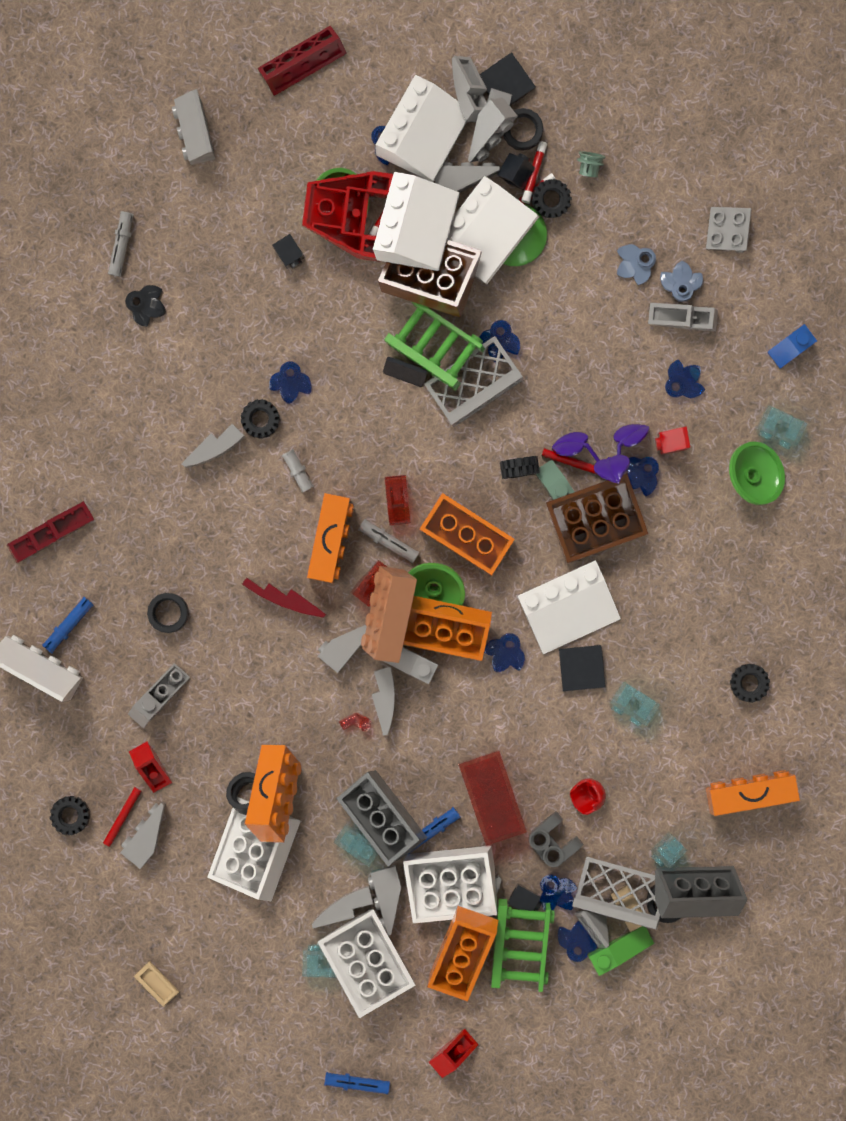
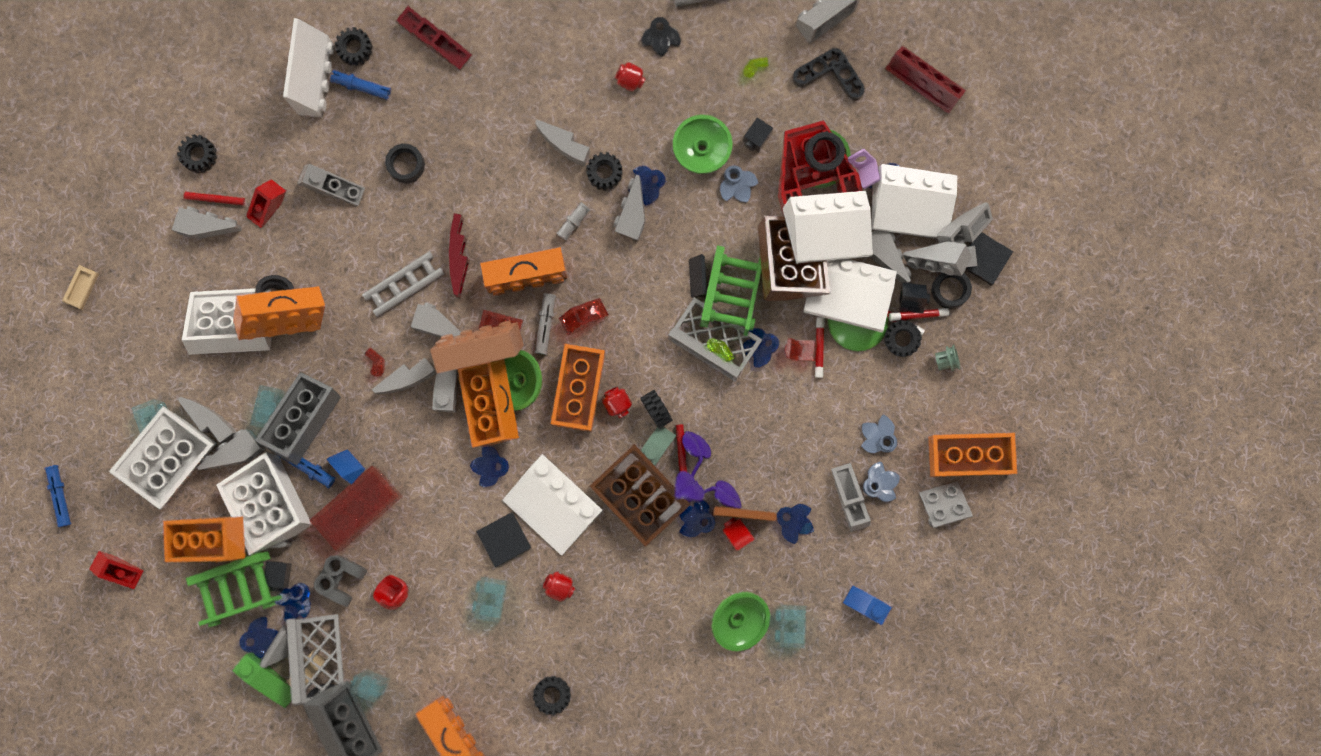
camera: 60 degrees right, 5 degrees down
(16, 625) = (345, 38): none -> black tyre
(175, 352) = (630, 76): none -> red head
(214, 225) = (753, 65): none -> clear neon green arm
(252, 144) = (835, 67): none -> black beam
(274, 295) = (702, 131): none -> bright green dish
(282, 675) = (400, 296): none -> light grey bar
(320, 410) = (633, 214): none -> light grey slope
(332, 293) = (737, 187): none -> sand blue plate
(356, 191) = (840, 151): none -> black tyre
(372, 160) = (867, 169): none -> lavender bracket
(447, 789) = (346, 465): none -> blue slope
(486, 379) = (720, 347): none -> clear neon green arm
(495, 503) = (617, 402): none -> red head
(520, 302) = (801, 350): none -> clear red bracket
(526, 283) = (820, 347): none -> red bar
(649, 633) = (558, 586): none -> red head
(656, 426) = (745, 514): none -> dark orange tile
(693, 182) = (972, 455): none -> orange brick

